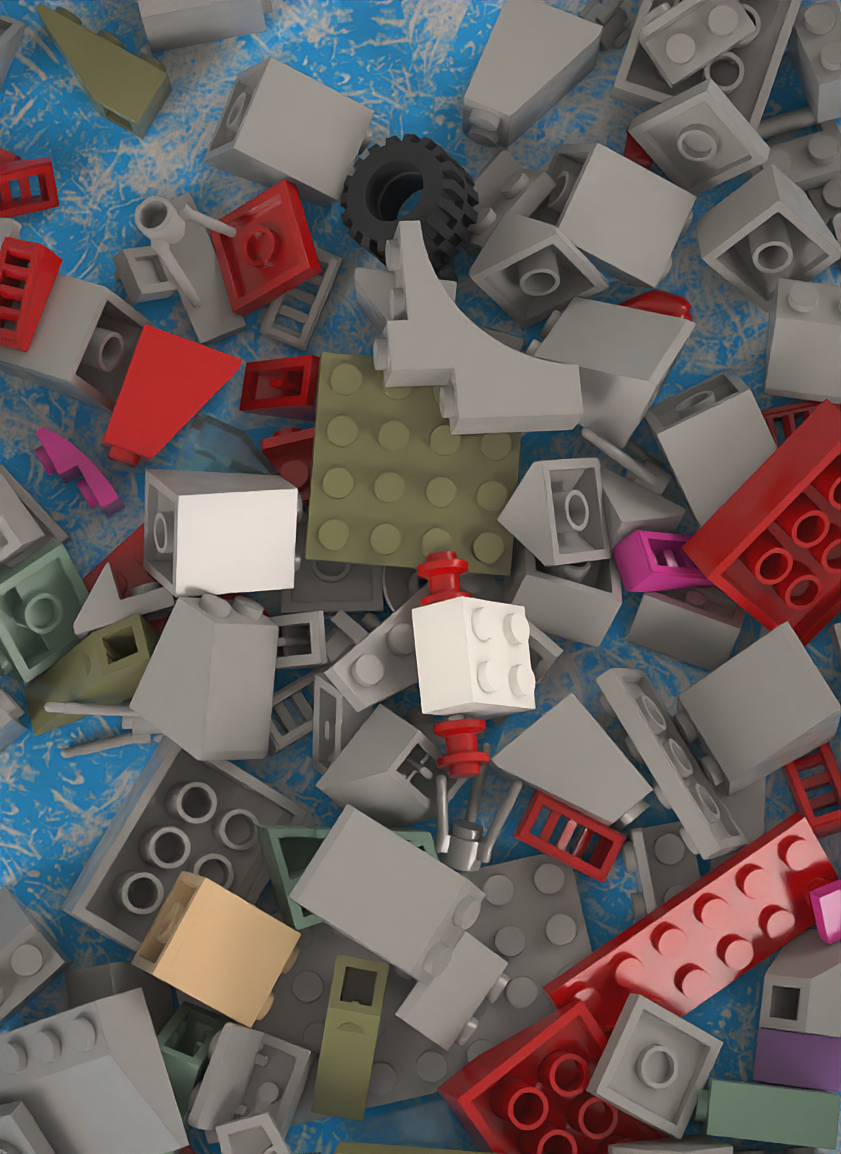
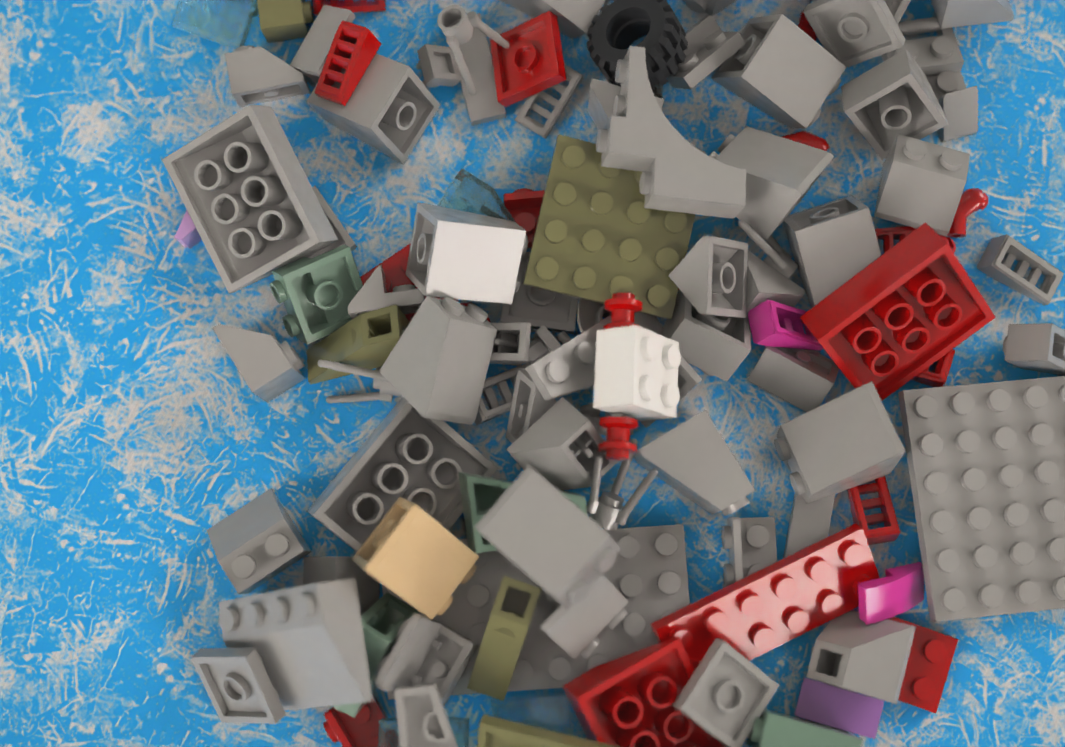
camera: 10 degrees right, 0 degrees up
(70, 463) = (366, 193): dark pink slope -> none
(161, 393) = (438, 150): red slope -> none
(281, 387) = (525, 161): red slope -> none
(533, 269) = (720, 101): light grey slope -> none
(603, 853) = (709, 531): red slope -> none
(678, 773) = (773, 481): light grey plate -> none

